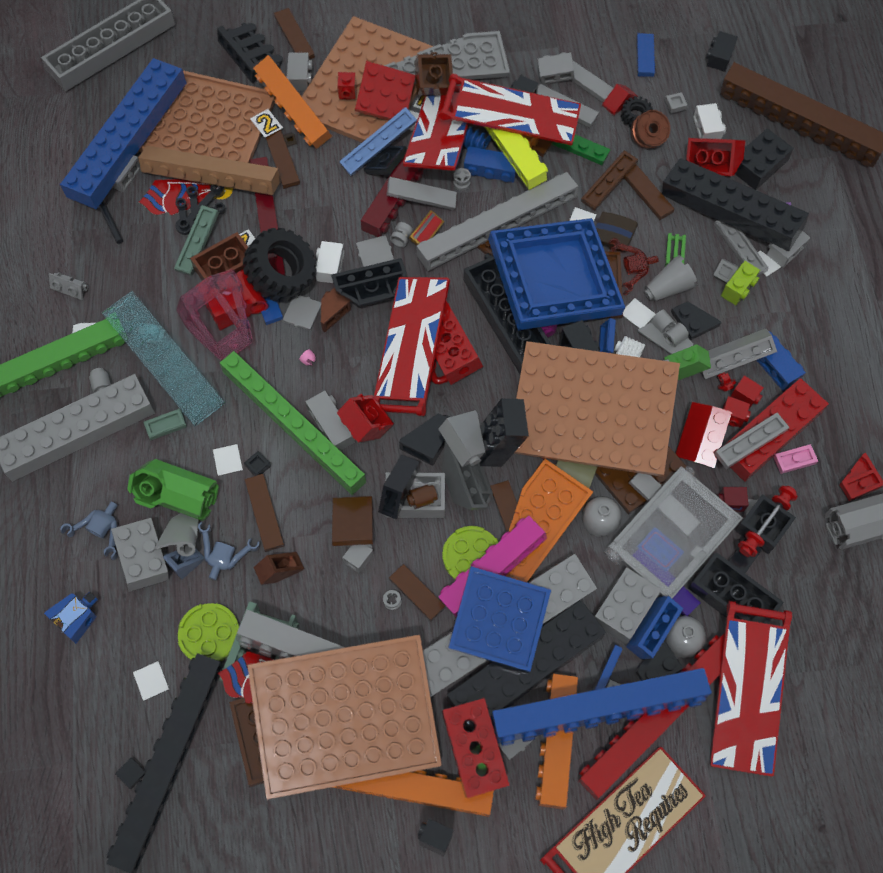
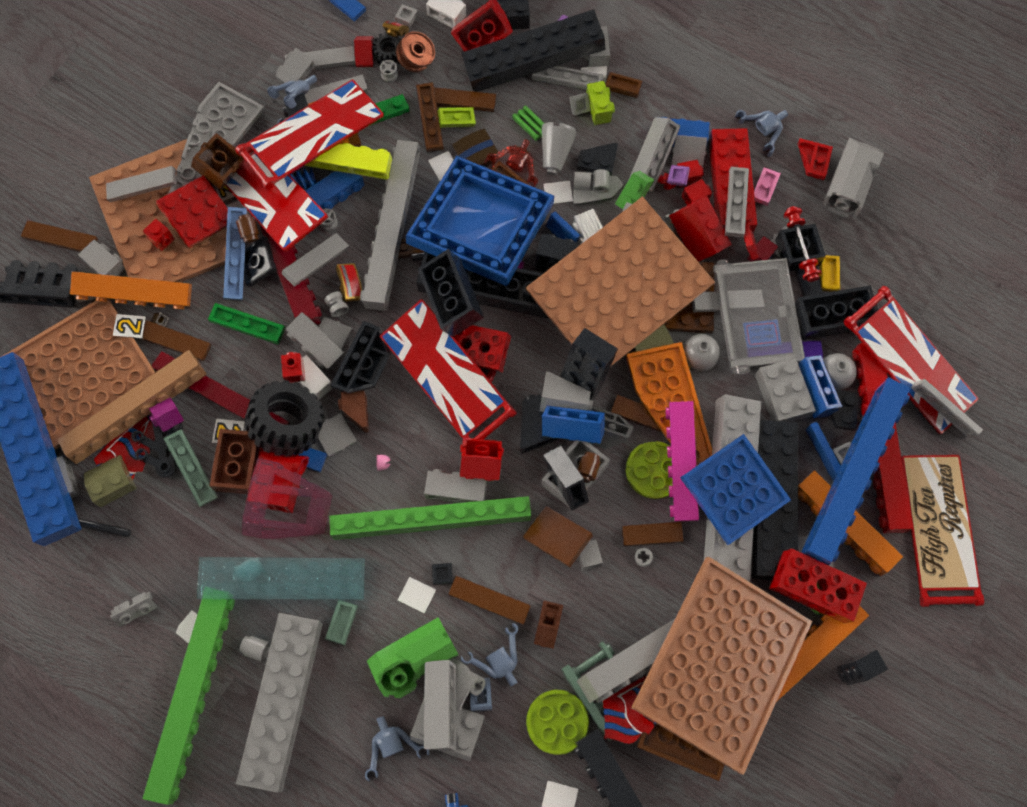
camera: 50 degrees left, 5 degrees up
(144, 200) = (108, 481): none -> olive slope
(148, 531) = (440, 705): none -> light grey panel
(220, 193) = (165, 415): none -> magenta brick
(323, 241) = (293, 367): none -> red brick
(334, 191) = (246, 323): none -> green plate
(357, 239) = (314, 341): none -> light grey brick
(374, 46) = (141, 184): none -> light grey tile
(401, 131) = (247, 228): none -> reddish brown brick
(446, 458) = (573, 424): none -> blue brick
(470, 292) = (450, 293): none -> black brick
(536, 75) = (292, 89): none -> sand blue piece
(622, 124) = (391, 67): none -> light grey wheel
(626, 197) = (456, 117): none -> lime plate
(653, 100) = (394, 29): none -> pearl gold slope
(730, 477) = (750, 242): none -> red tile
(733, 750) = (946, 408): none -> light grey tile
(734, 383) = (678, 175): none -> medium lavender tile
(768, 376) = (688, 149): none -> light grey piece
(769, 567) = (830, 273): none -> yellow tile
(776, 290) = (623, 84): none -> reddish brown tile
(853, 418) = (766, 123): none -> sand blue piece

